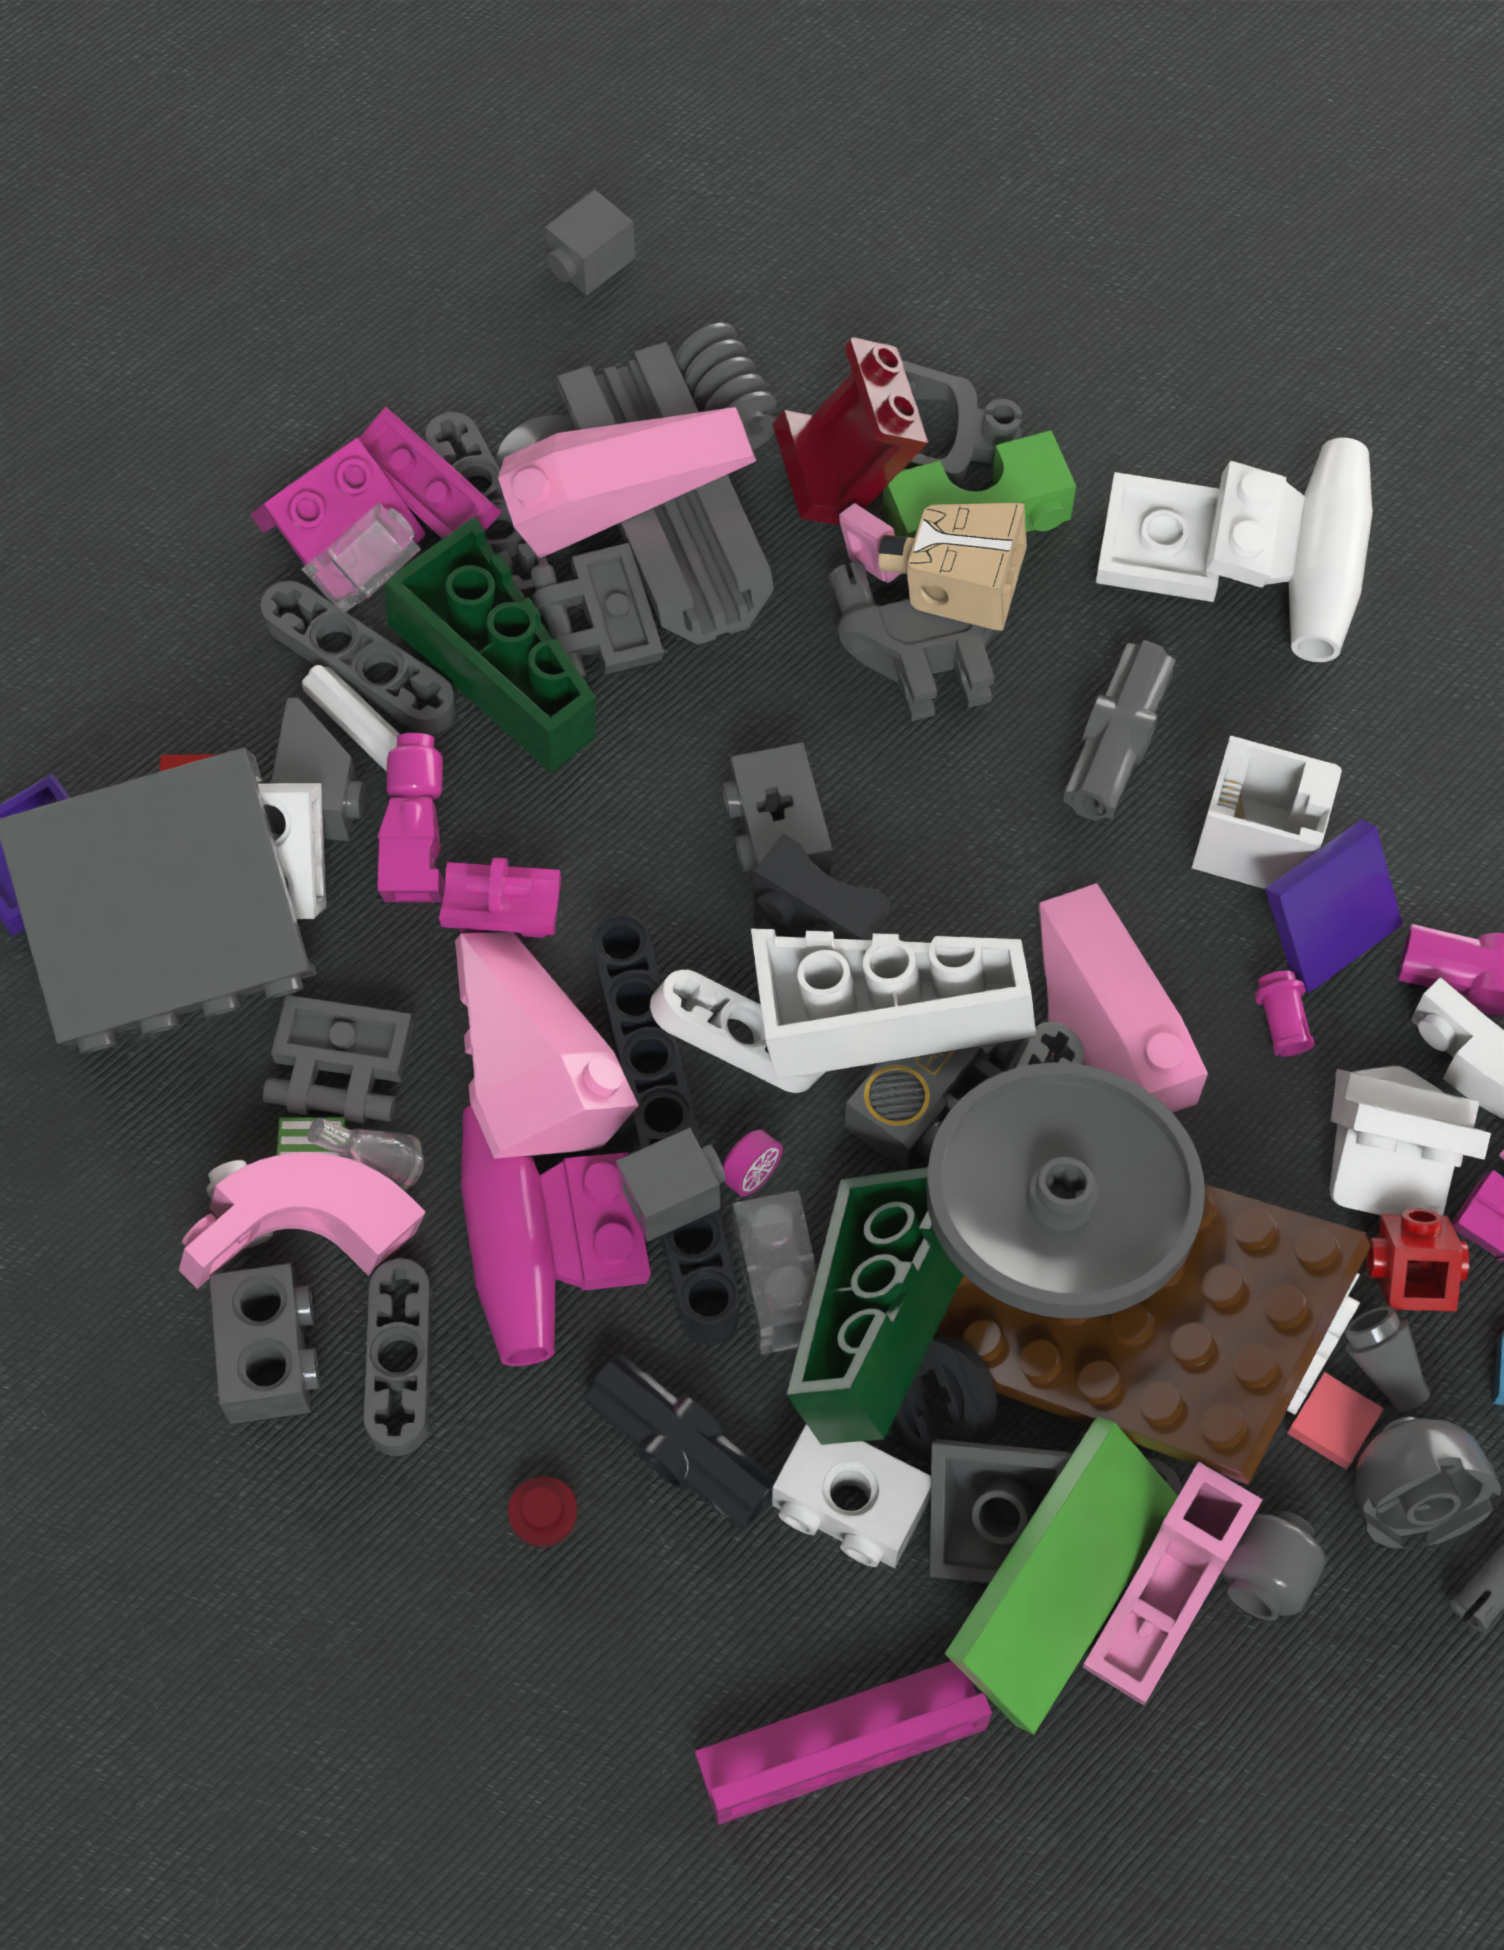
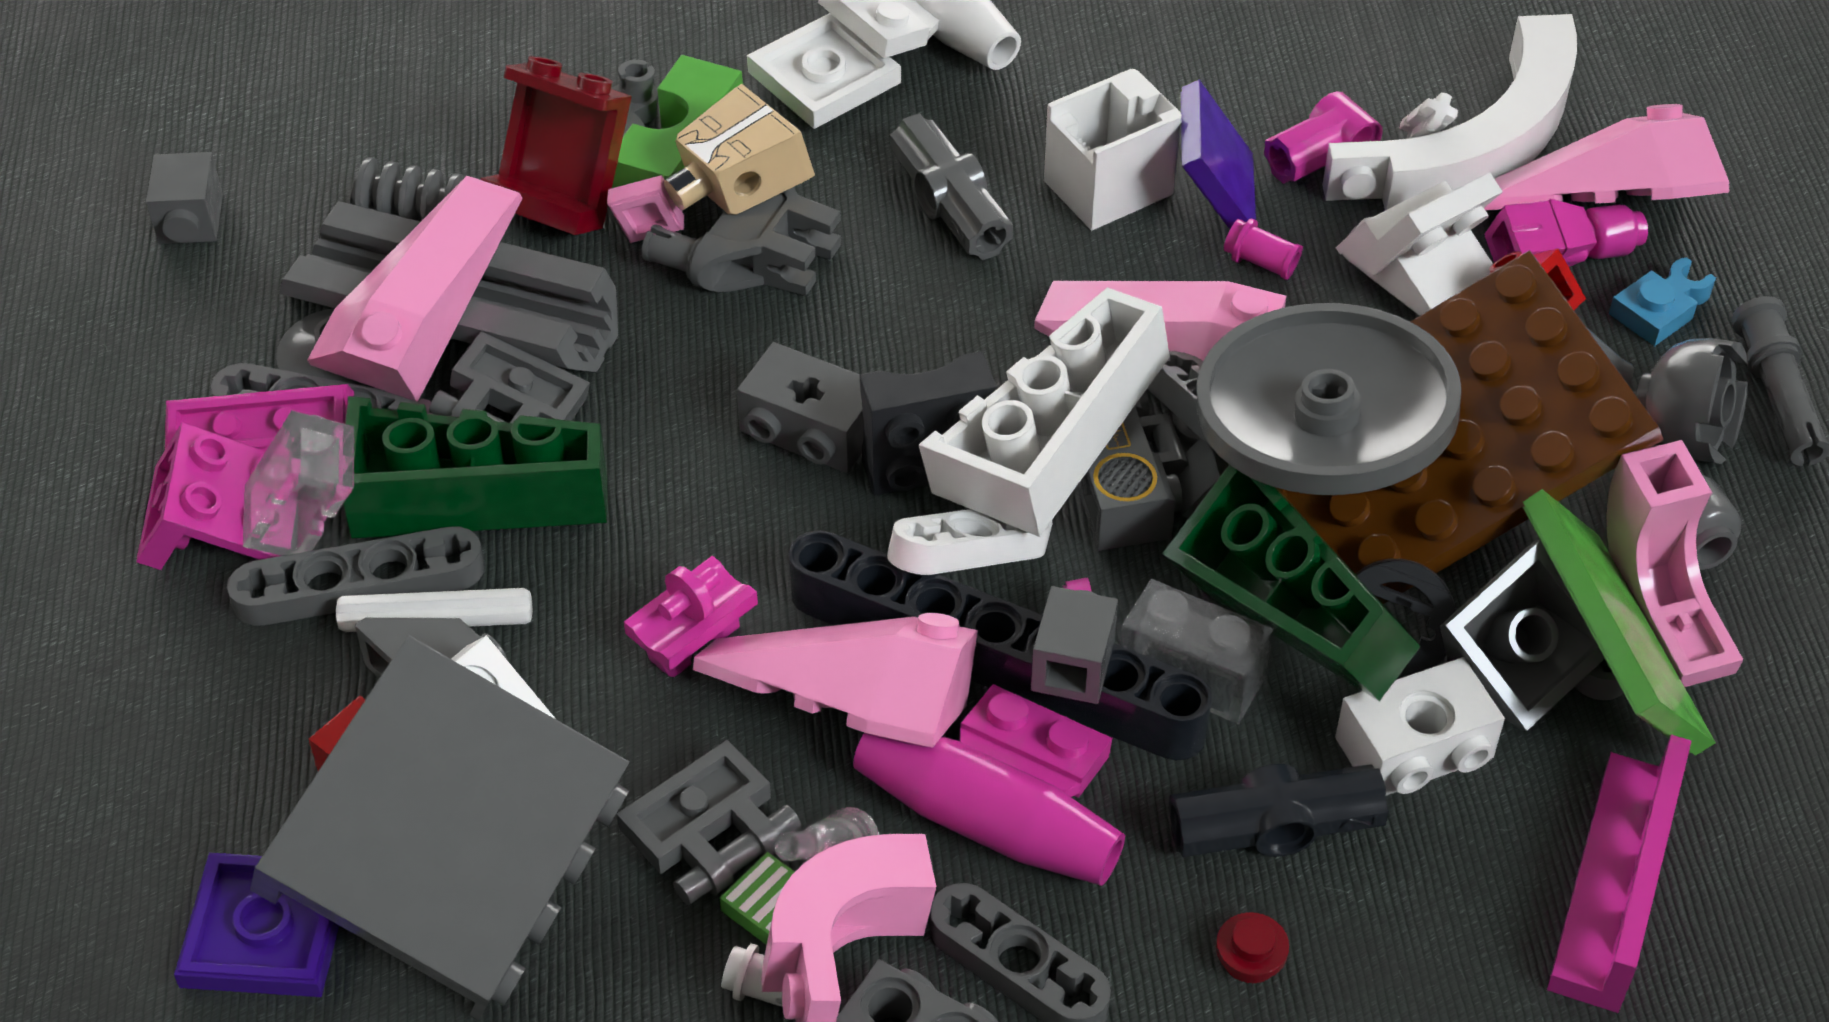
camera: 50 degrees left, 15 degrees down
(410, 826) = (564, 626): dark pink piece -> none

